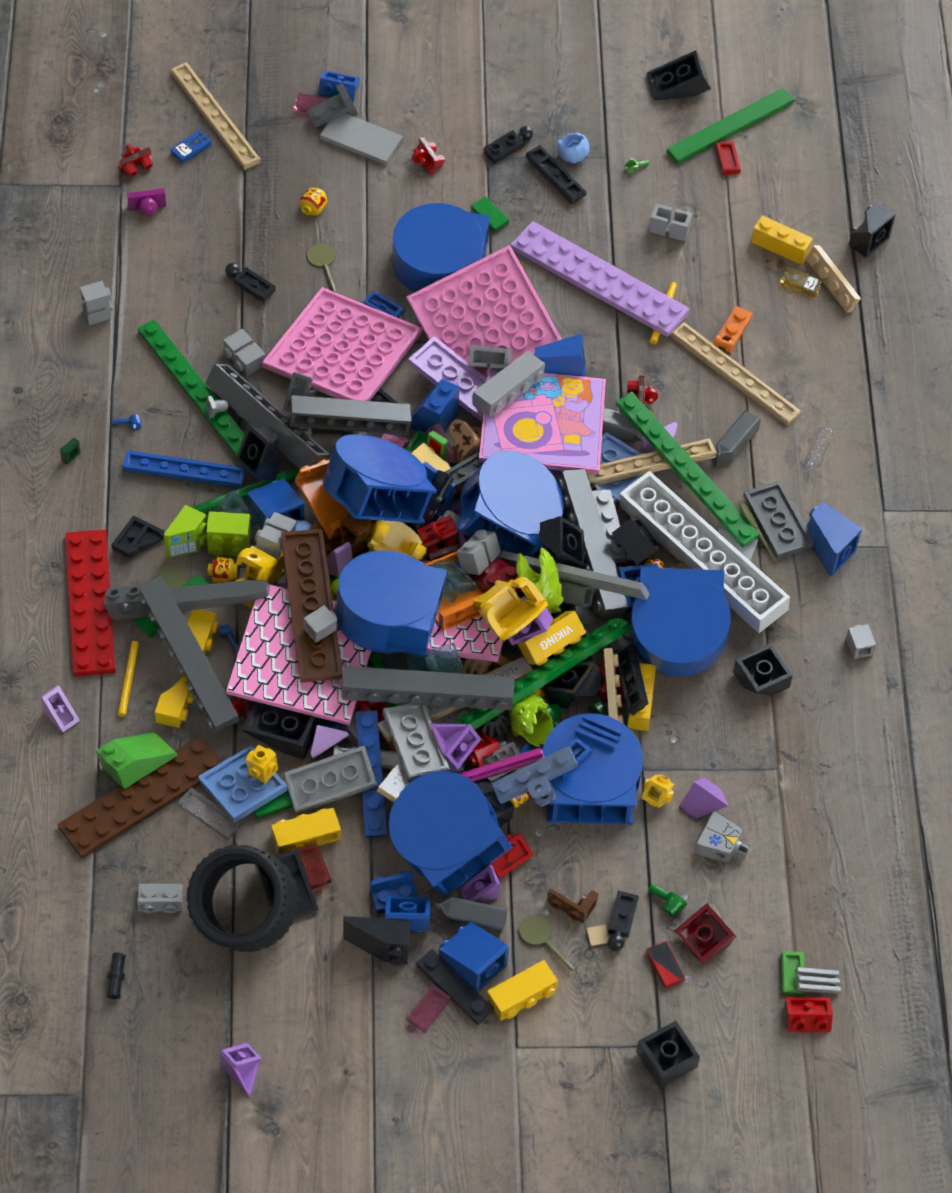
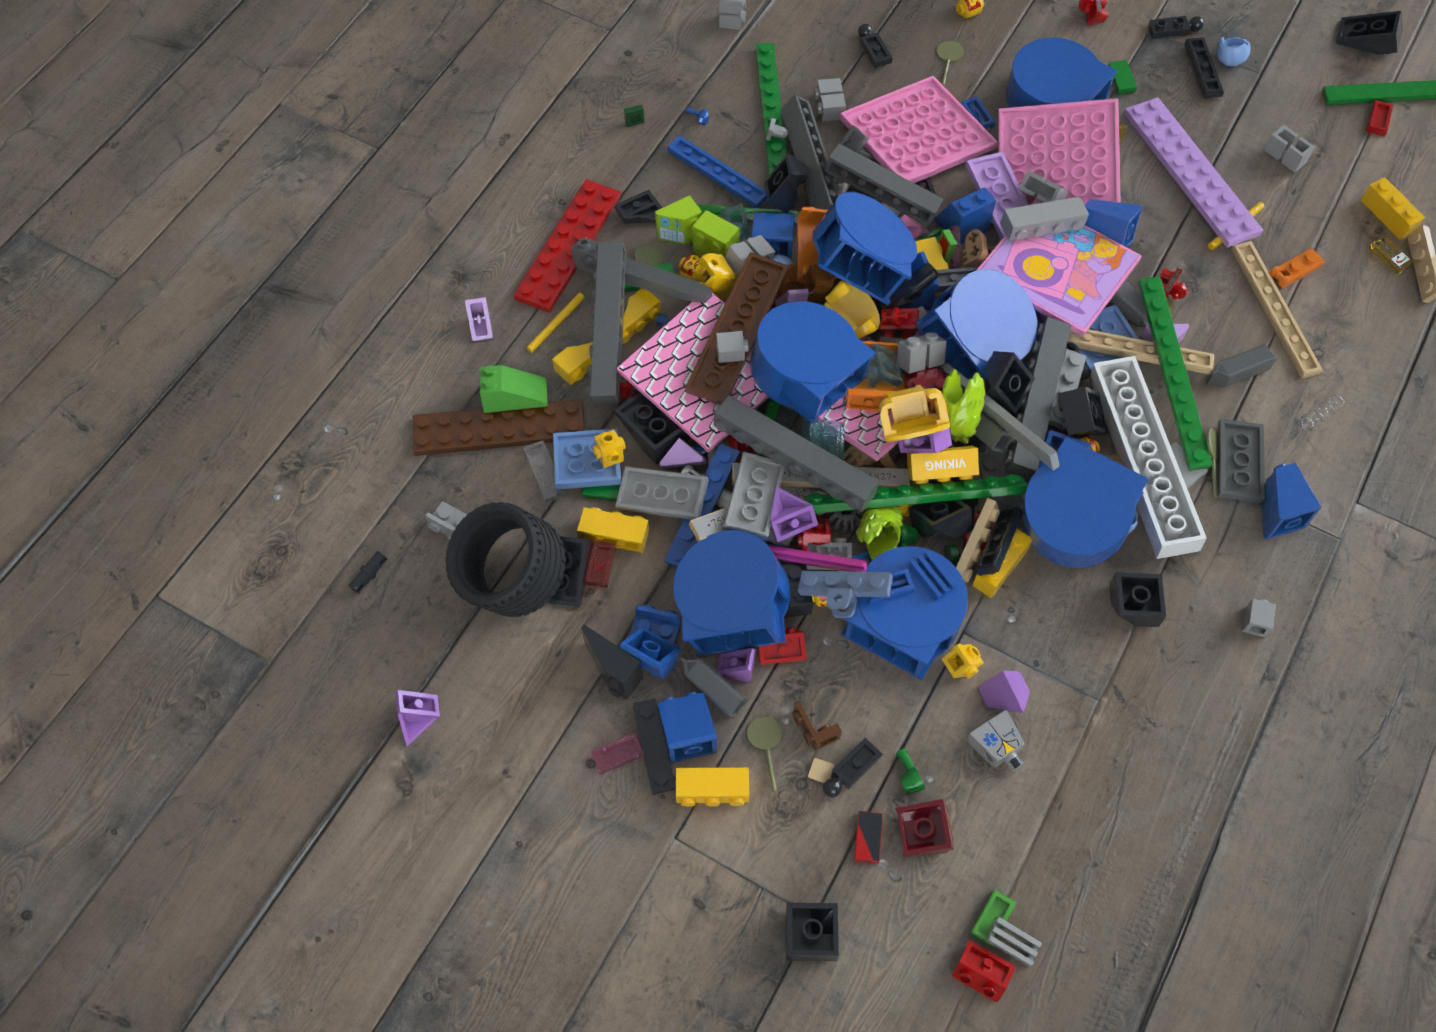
camera: 35 degrees right, 5 degrees up
(632, 164) = (1282, 87): bright green hand -> none

